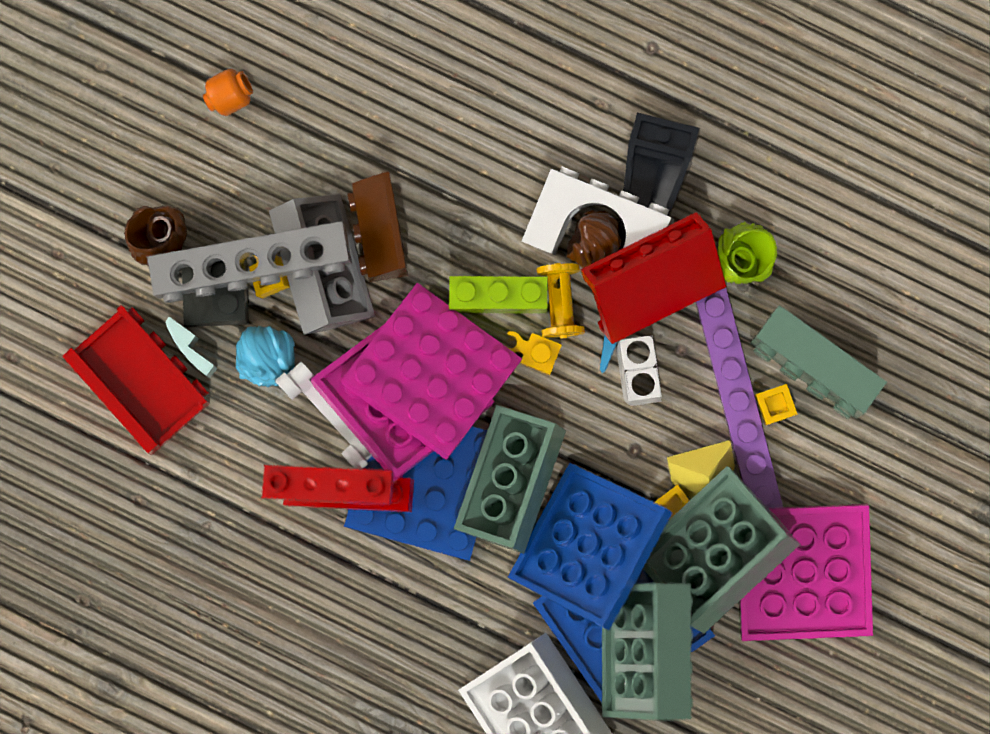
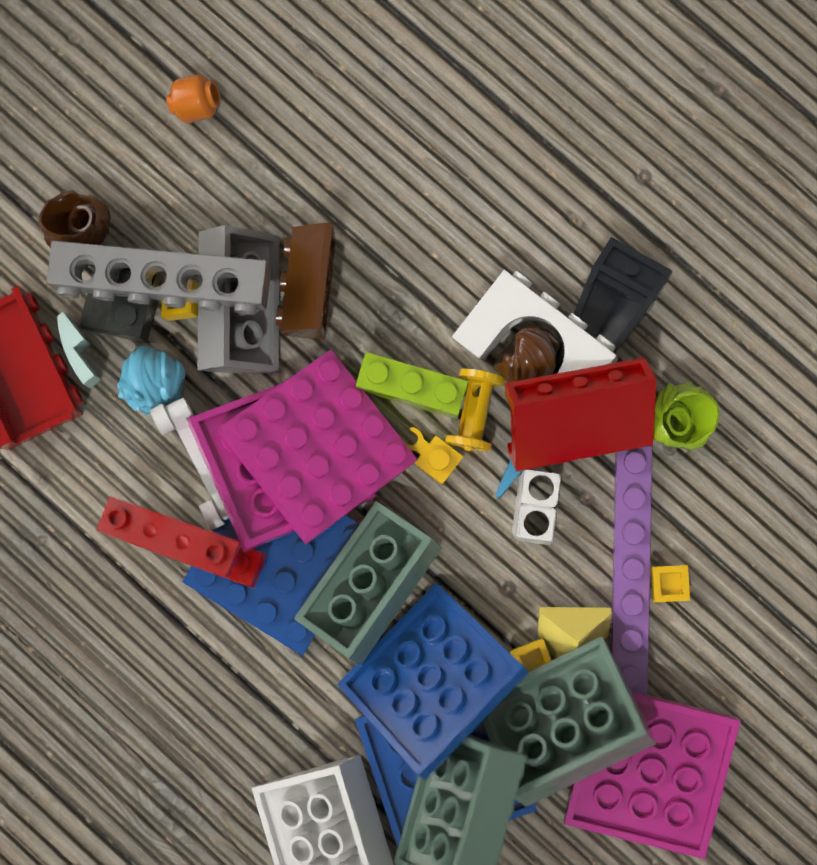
camera: 20 degrees right, 0 degrees up
(817, 363) = (728, 554): sand green brick -> none

